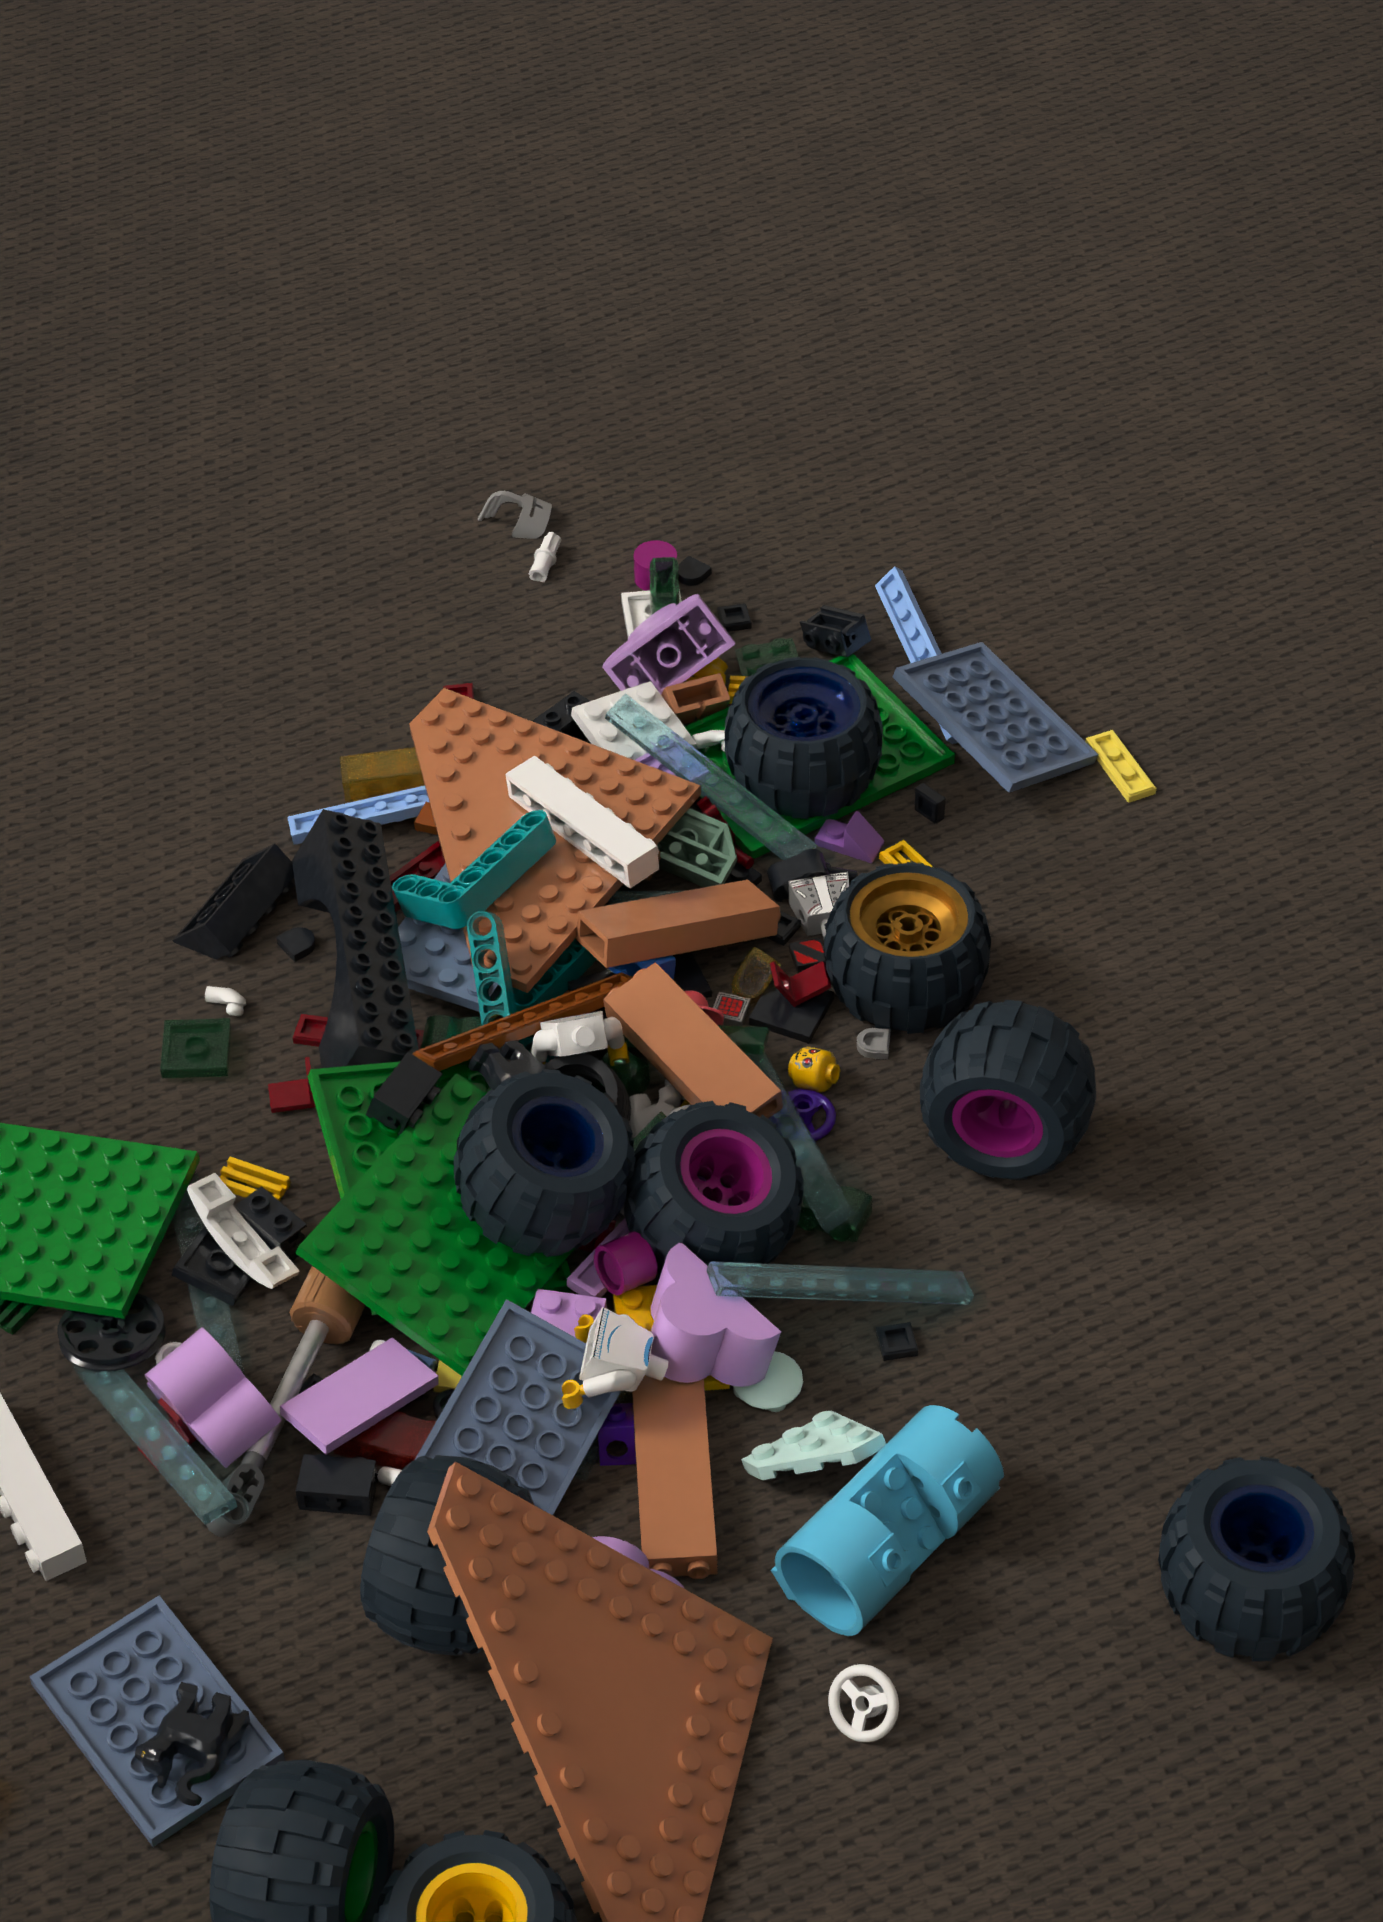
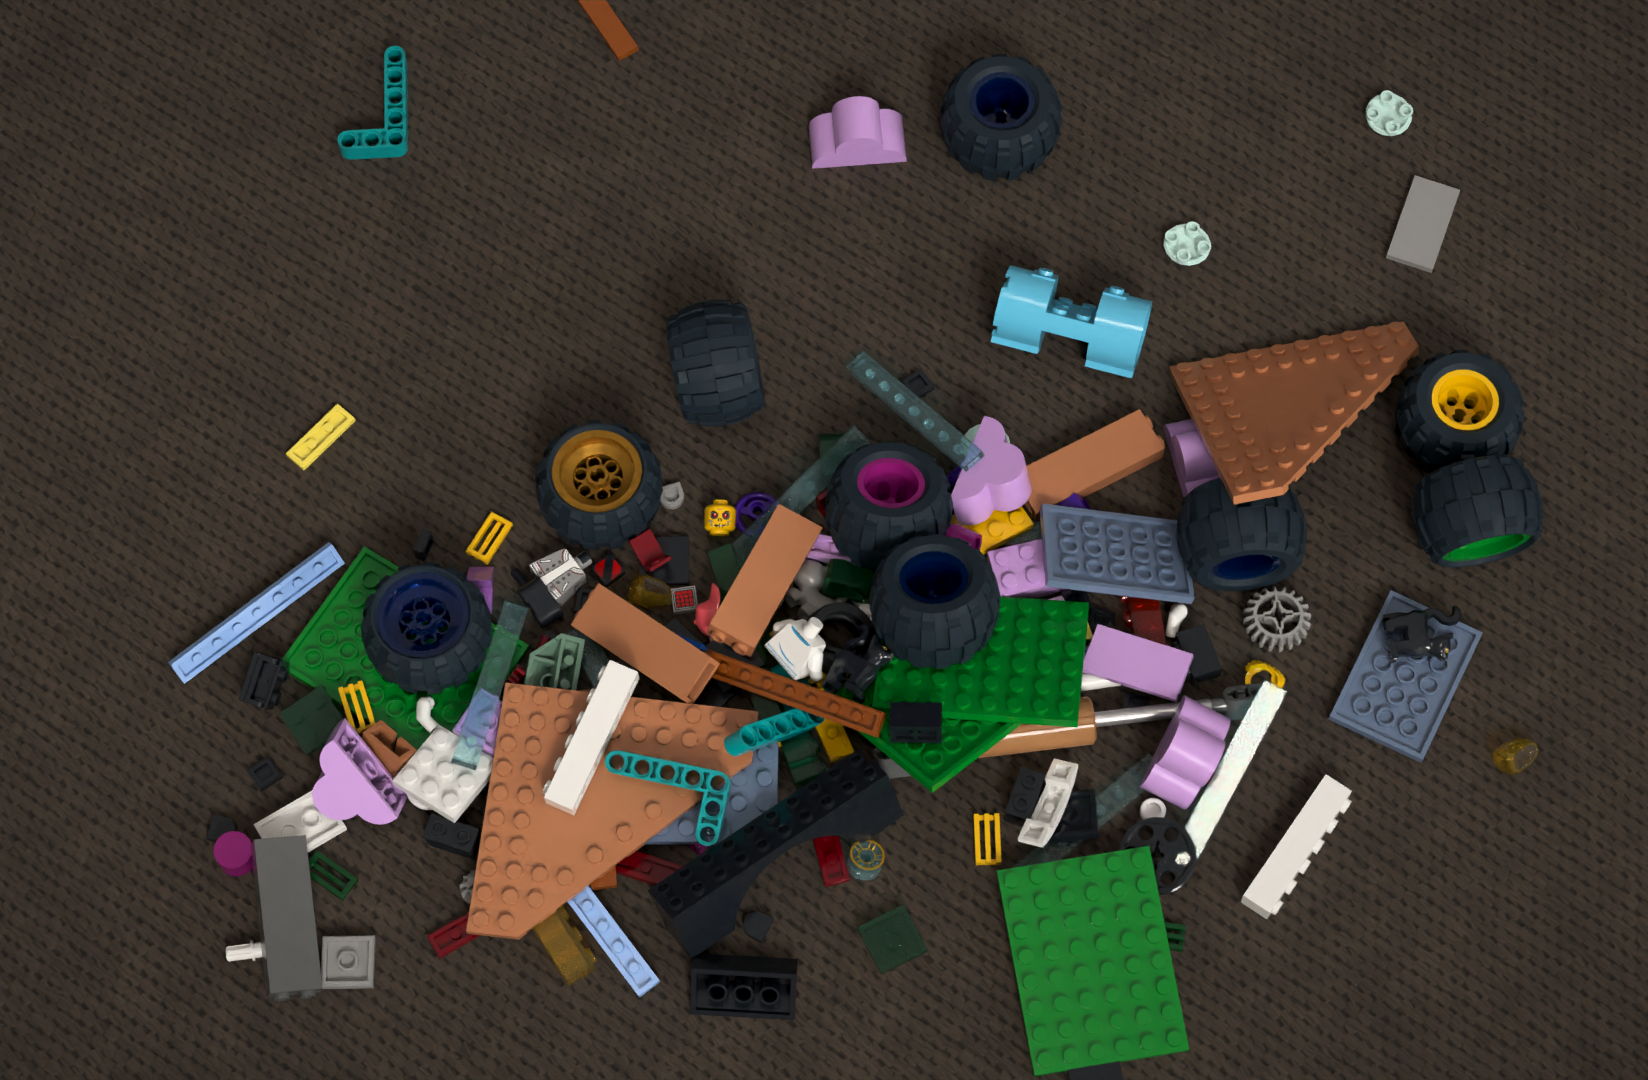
camera: 115 degrees left, 20 degrees up
(226, 996) = (832, 943): white arm -> none
(254, 1569) = (1258, 666): none -> yellow piece
(291, 1094) = (899, 849): dark red bracket -> none
(302, 1040) = (868, 850): none -> clear light blue wheel
(322, 1585) = (1297, 614): none -> light grey gear
(485, 619) = (348, 962): none -> light grey plate
(526, 526) = (211, 978): light grey helmet -> none
(557, 574) = (286, 917): none -> dark grey brick
(590, 636) = (346, 887): none -> dark green tile
(614, 1357) = (1047, 506): white torso -> none
(663, 583) = (275, 819): clear green brick -> none
(805, 1448) = (1032, 387): light aqua plate -> none
(878, 1698) = (1187, 296): white piece -> none
(957, 1746) = (1187, 244): none -> light aqua dish
(995, 716) = (321, 525): sand blue plate -> none
(1307, 1408) = (856, 135): none -> lavender brick

